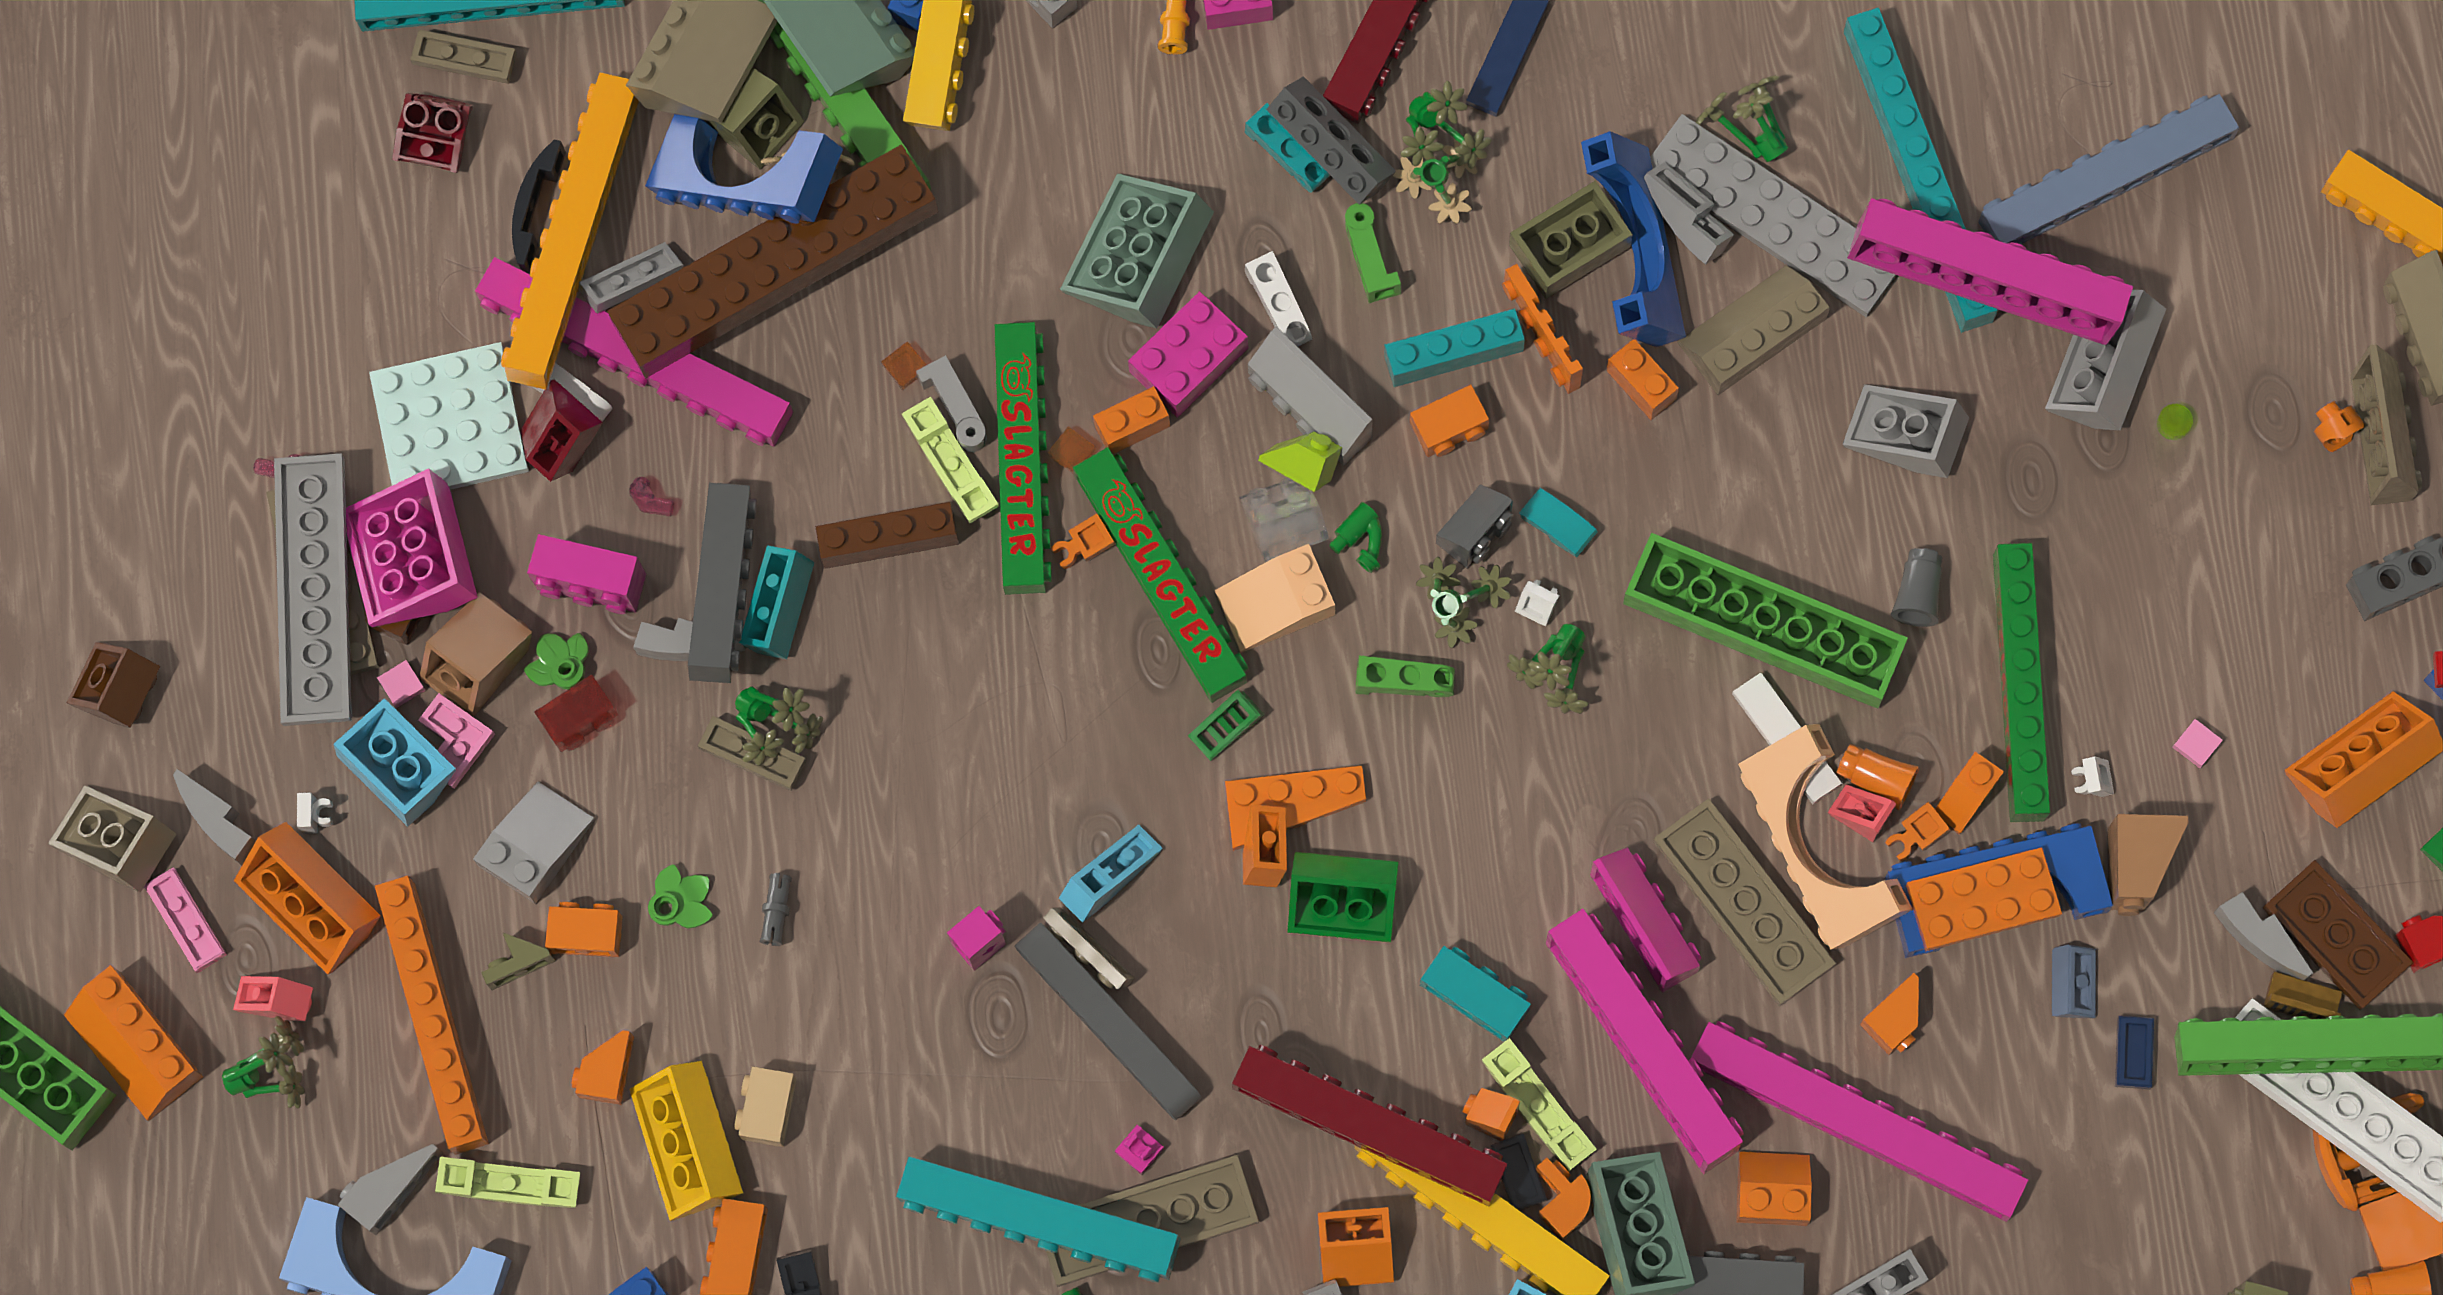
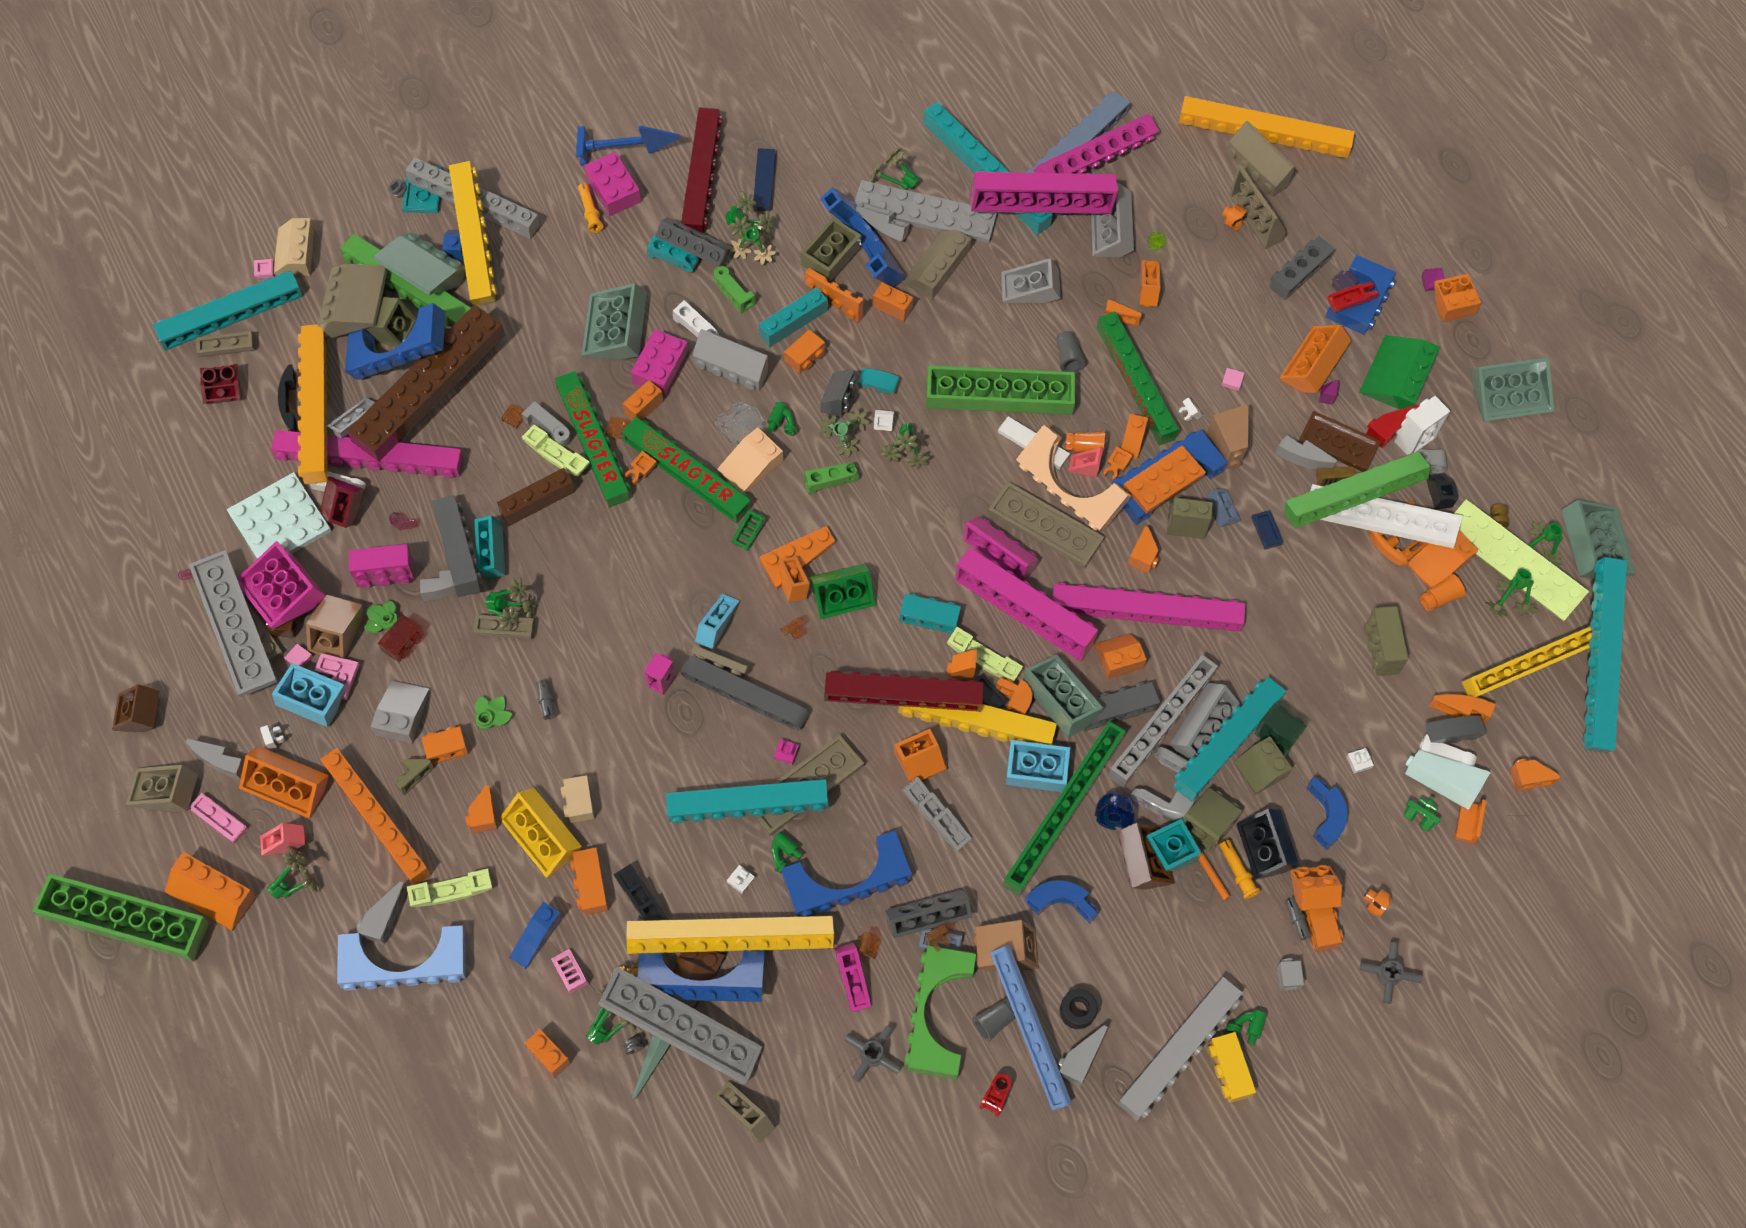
camera: 30 degrees left, 10 degrees down
(1231, 932) = (793, 628): none -> clear orange tile
(1304, 459) = (739, 390): lime slope -> none
(2000, 980) = (1189, 518): none -> olive slope
(2046, 546) = (1125, 314): none -> orange slope
(2124, 502) = (1149, 283): none -> orange slope
(2248, 194) = (1144, 126): none -> dark pink brick
(2361, 833) = (1329, 392): none -> magenta slope

